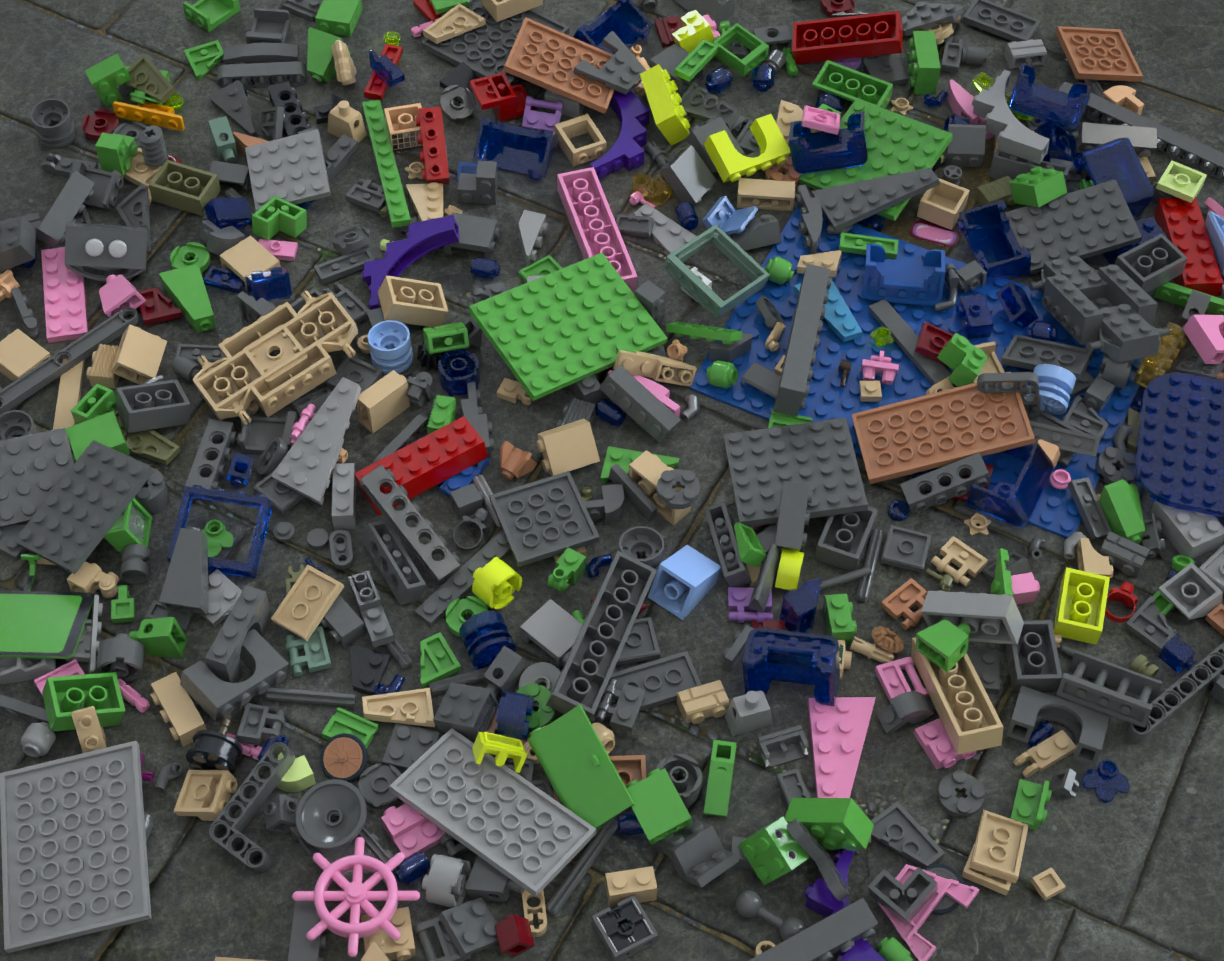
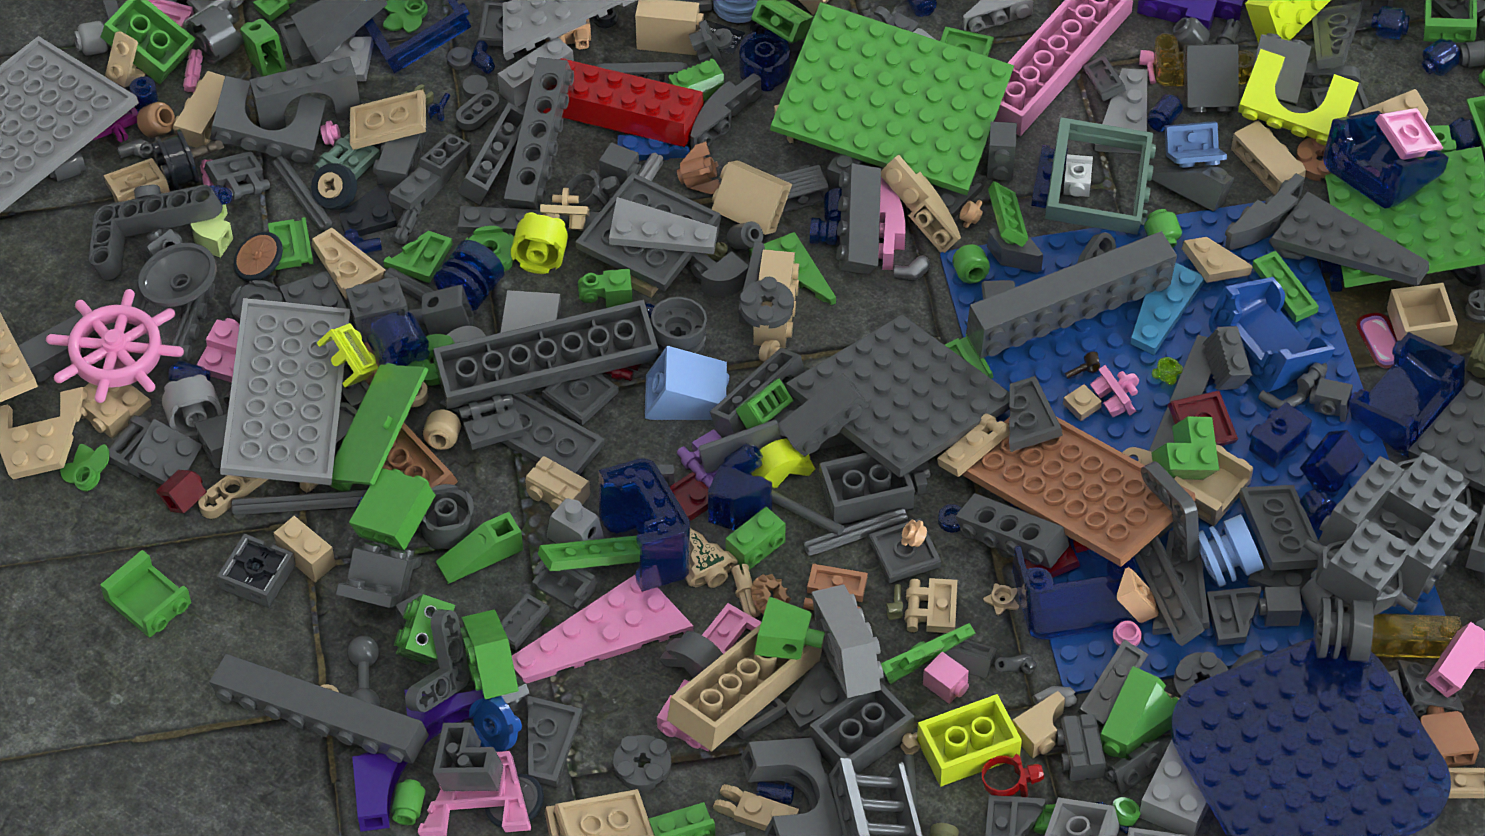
camera: 55 degrees right, 0 degrees up
(126, 733) = (145, 91): none -> clear blue brick
(158, 744) = (155, 119): none -> medium nougat head
(231, 789) = (146, 190): none -> dark grey tile
(278, 645) = (330, 133): none -> bright pink plate
(297, 520) = (481, 58): none -> clear blue arm
(327, 664) = (343, 184): none -> black wheel
(493, 548) = (577, 213): none -> tan hips
(552, 511) = (656, 229): none -> light grey wing
(592, 472) = (744, 235): none -> dark grey brick
(624, 429) = (823, 231): none -> clear blue wheel
(643, 164) = (1190, 32): none -> dark grey head
(682, 299) = (1043, 176): none -> clear blue plate
(694, 518) = (767, 349): none -> tan plate
(779, 585) = (745, 459): none -> clear blue brick
(783, 714) = (590, 553): none -> bright green plate
(867, 461) = (973, 445): none -> tan plate
(871, 417) = (1030, 415): none -> dark grey wing
(877, 848) = (496, 712): none -> blue plate
(904, 302) = (1227, 358): none -> dark grey brick
(912, 533) = (914, 533): none -> light nougat plate
(1167, 369) = (1344, 629): none -> dark grey wheel

